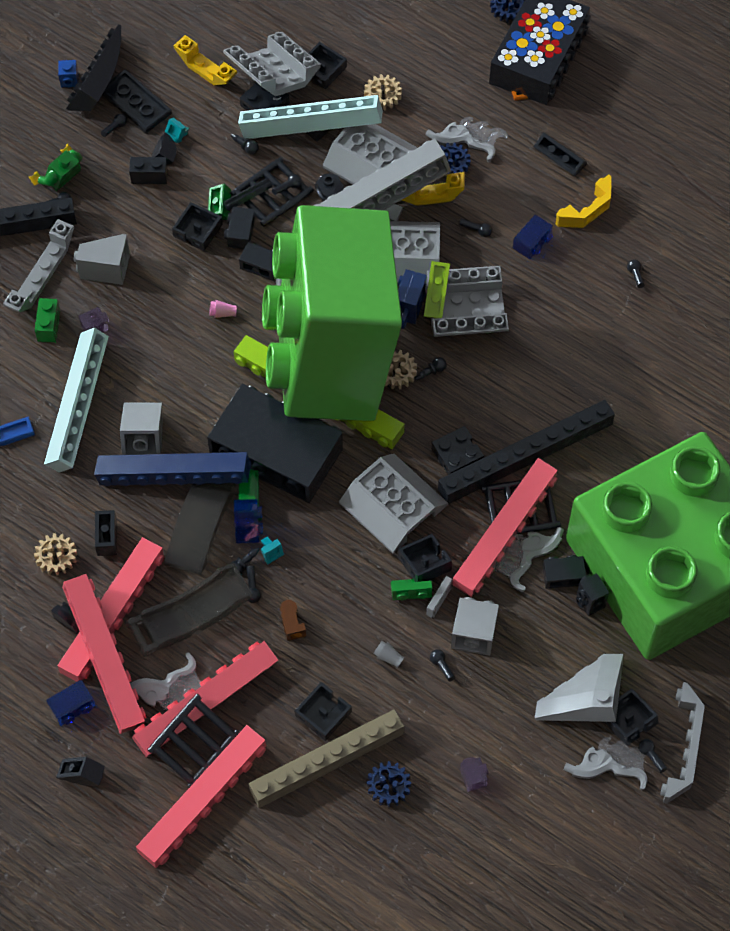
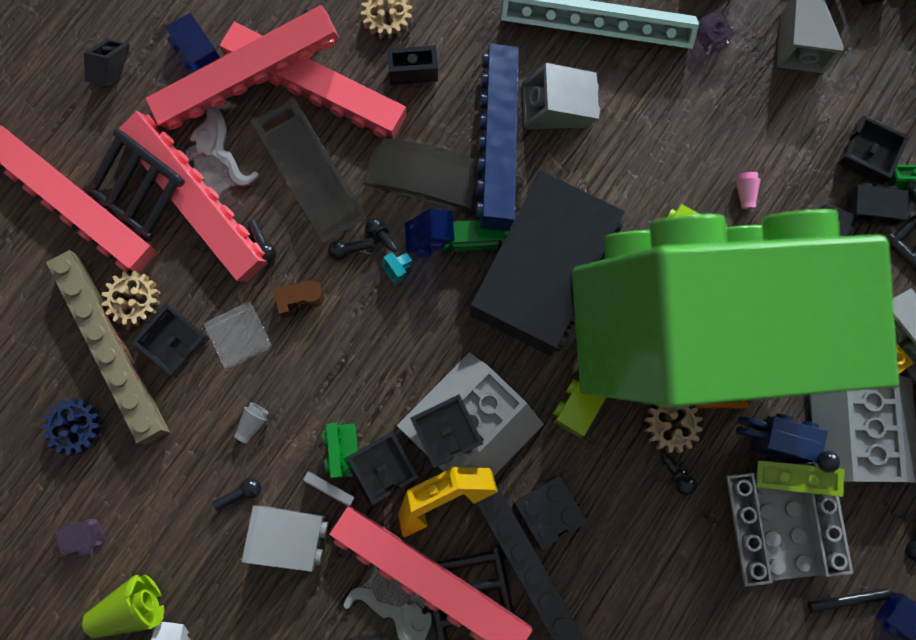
camera: 85 degrees right, 15 degrees up
(244, 649) = (267, 248): none -> black bar
(280, 734) = (118, 306): none -> tan gear
(319, 665) = (238, 335): none -> clear tile
(399, 506) = (446, 430): none -> black piece
(427, 269) = (828, 461): none -> black bar
(444, 517) = (444, 487): none -> yellow slope
(518, 273) = (849, 600): none -> black bar
(527, 737) = (126, 609): none -> lime cone

